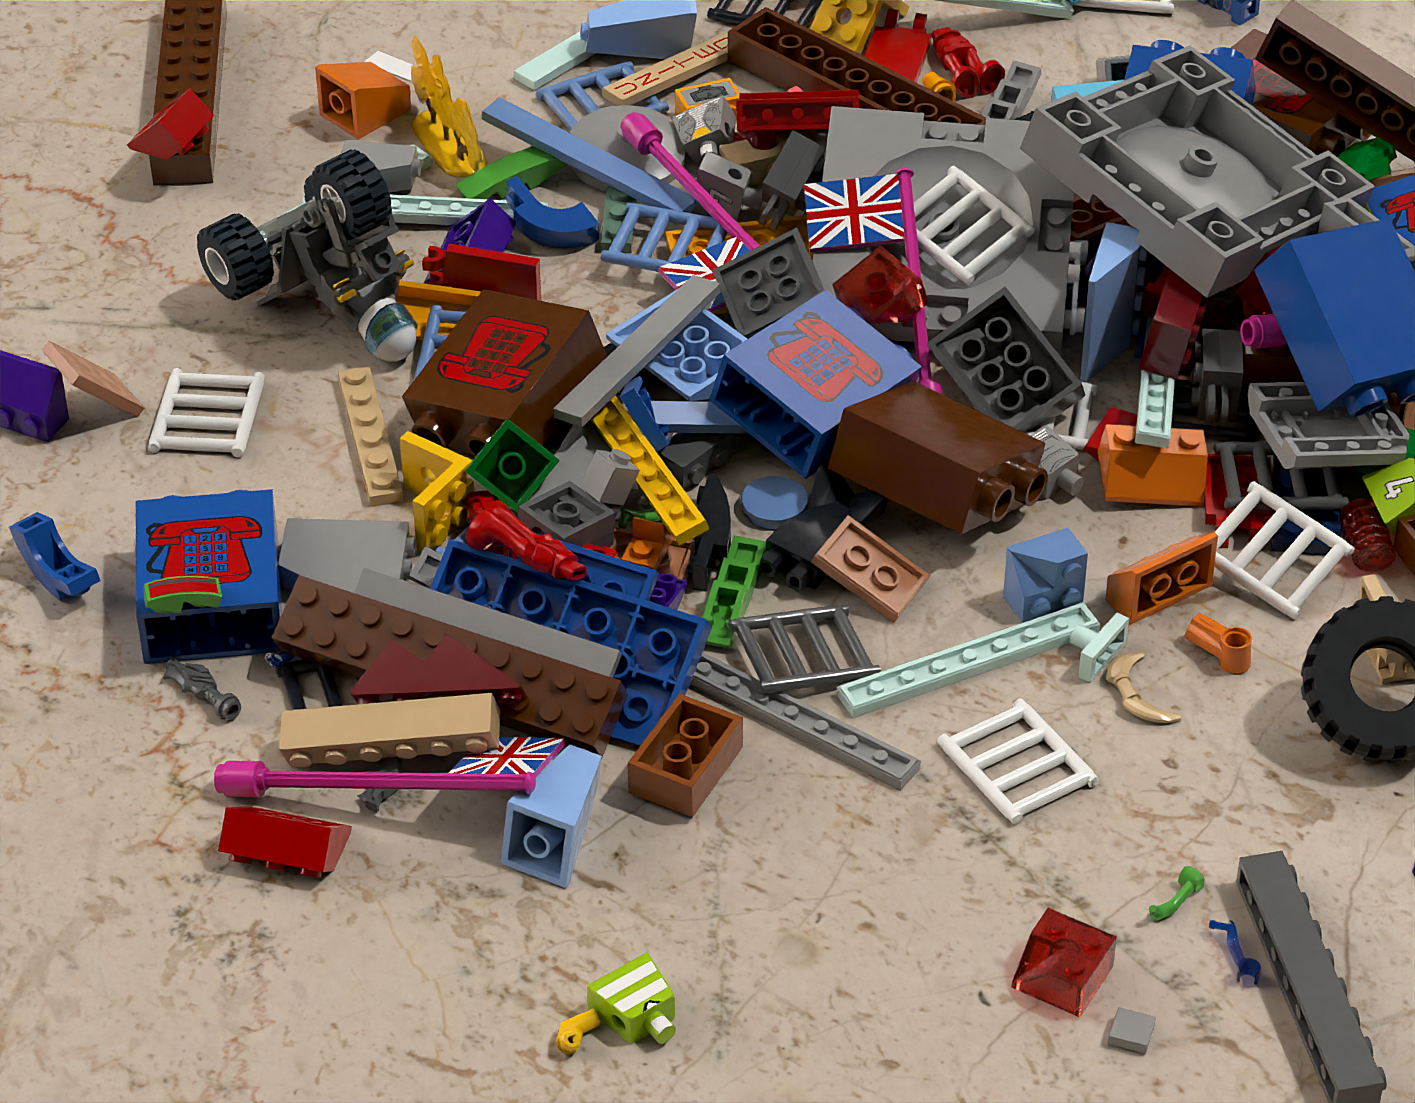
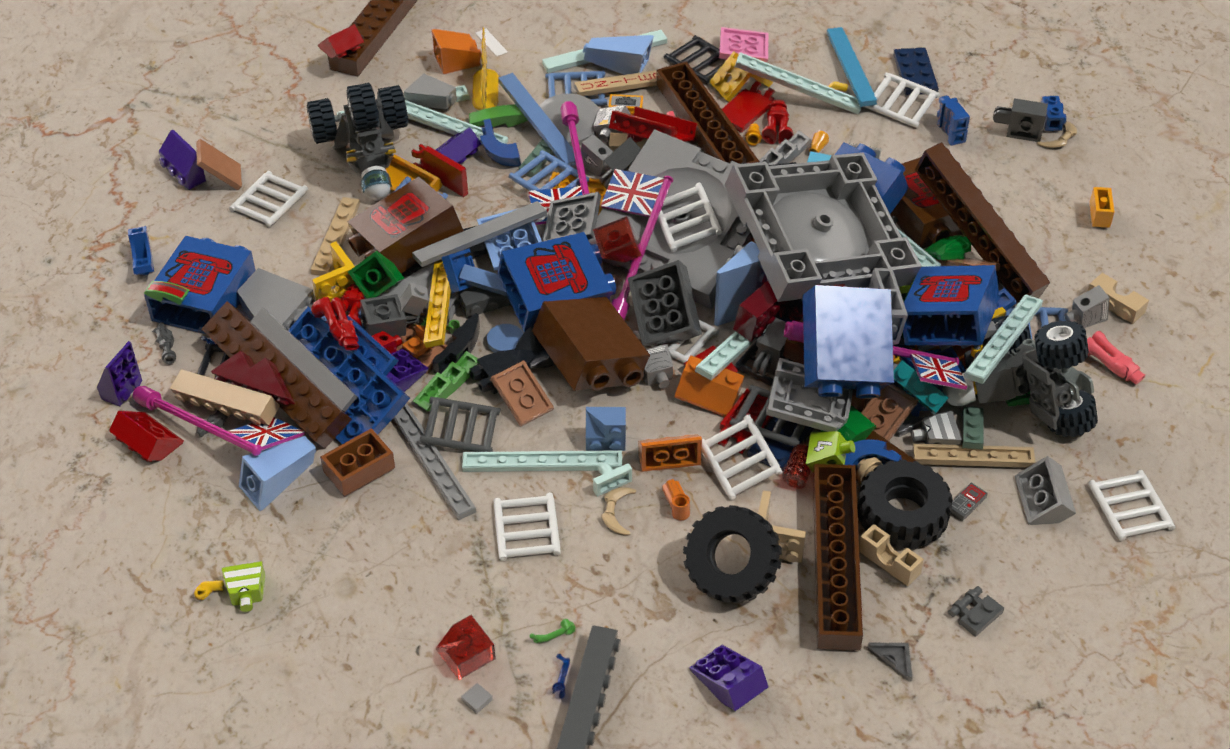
camera: 25 degrees right, 5 degrees up
(178, 759) = (120, 377): none -> dark purple slope
(1050, 71) = (819, 141): none -> light orange cone

